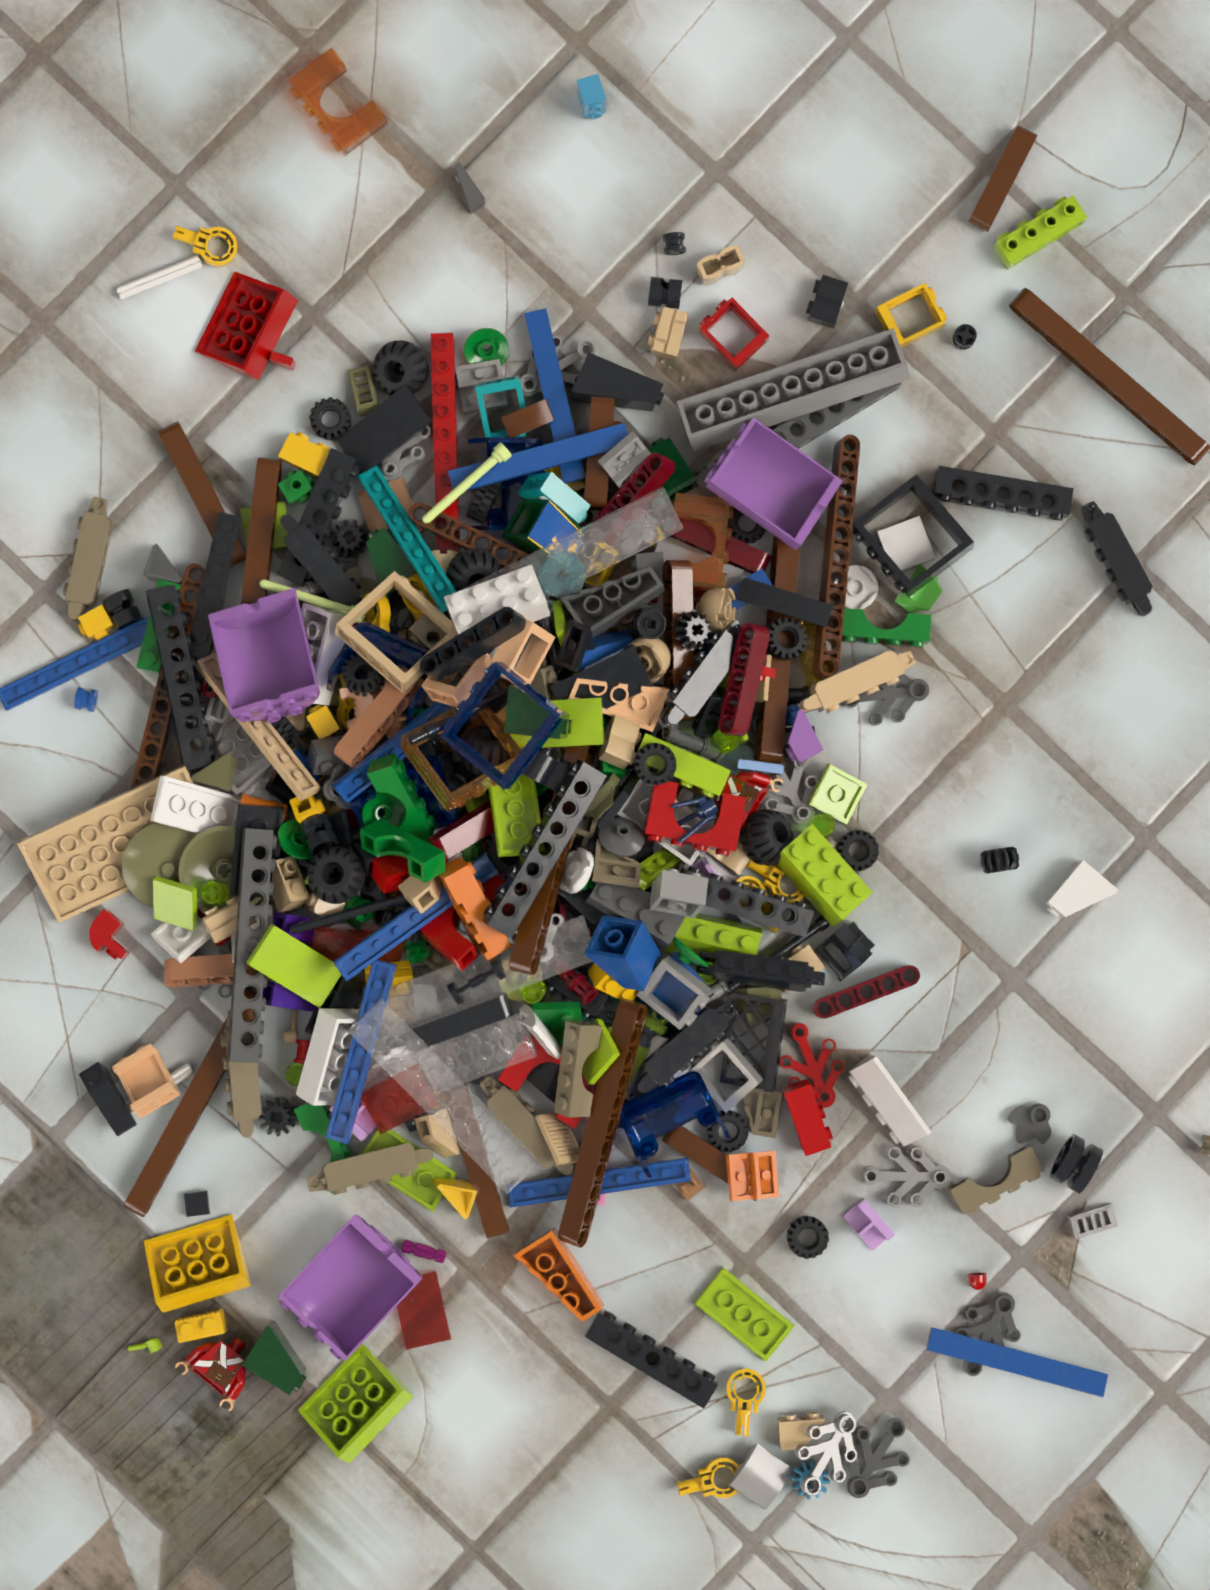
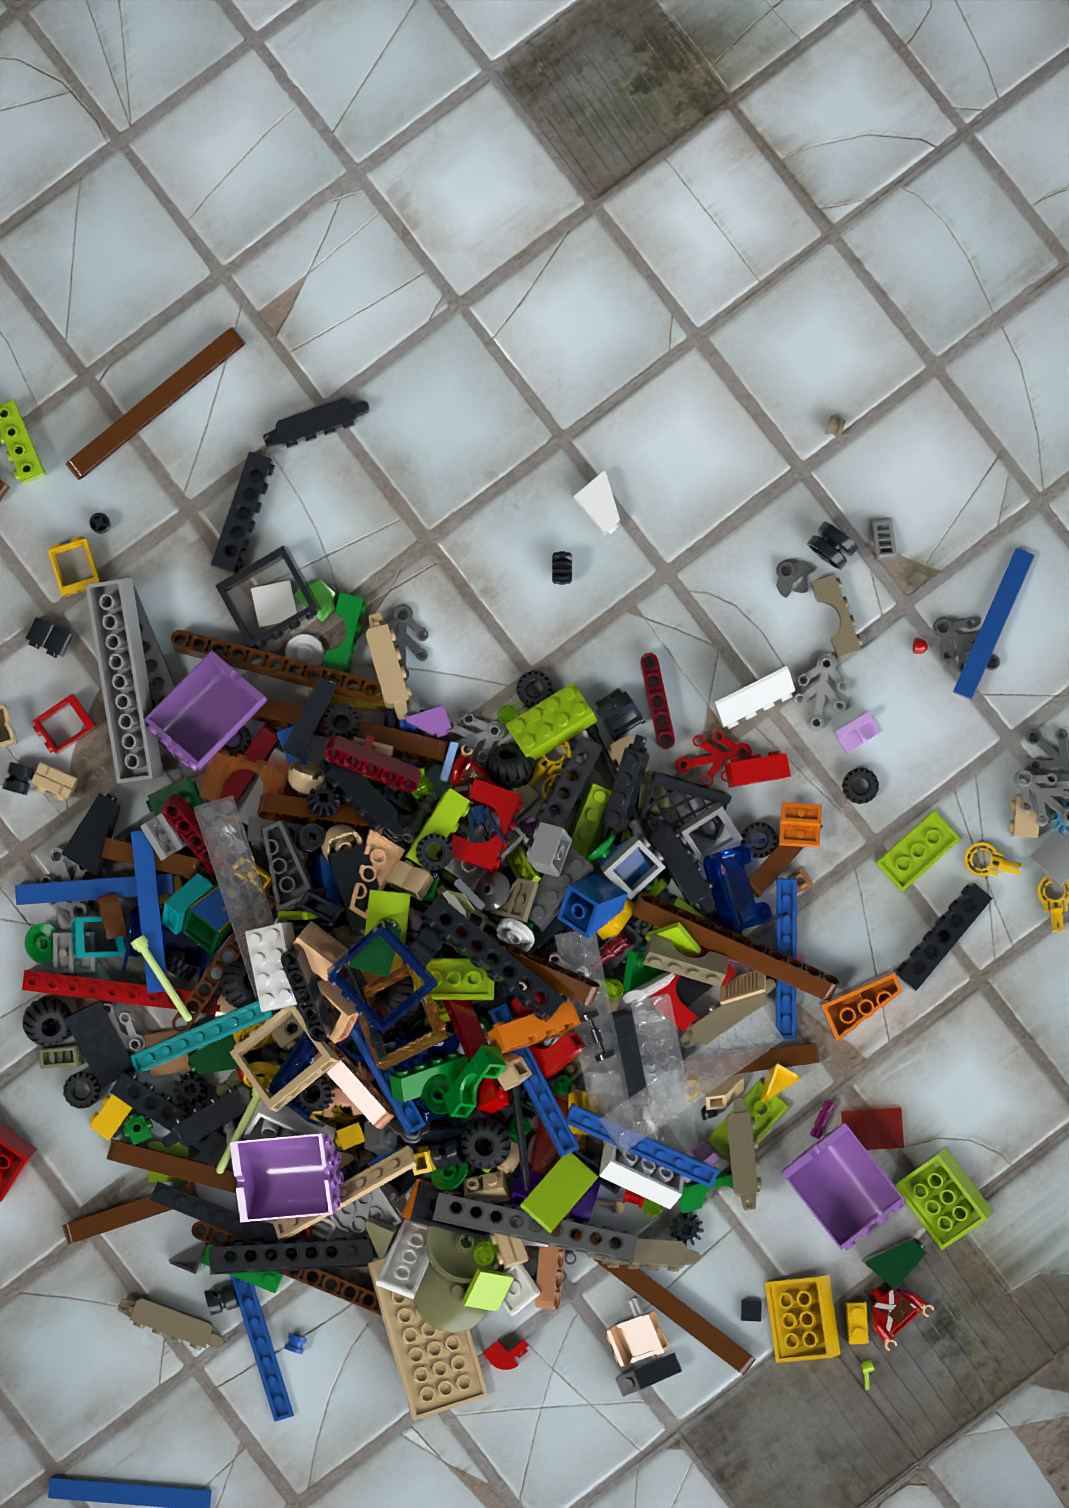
camera: 80 degrees left, 0 degrees up
(96, 623) = (230, 1324): yellow brick -> none
(282, 360) = (23, 1124): red tile -> none
(389, 1104) = (691, 1128): clear red tile -> none
(551, 566) = (247, 913): clear light blue plate -> none
(763, 1111) = (746, 806): dark tan wing -> none
(837, 793) = (482, 698): tile -> none

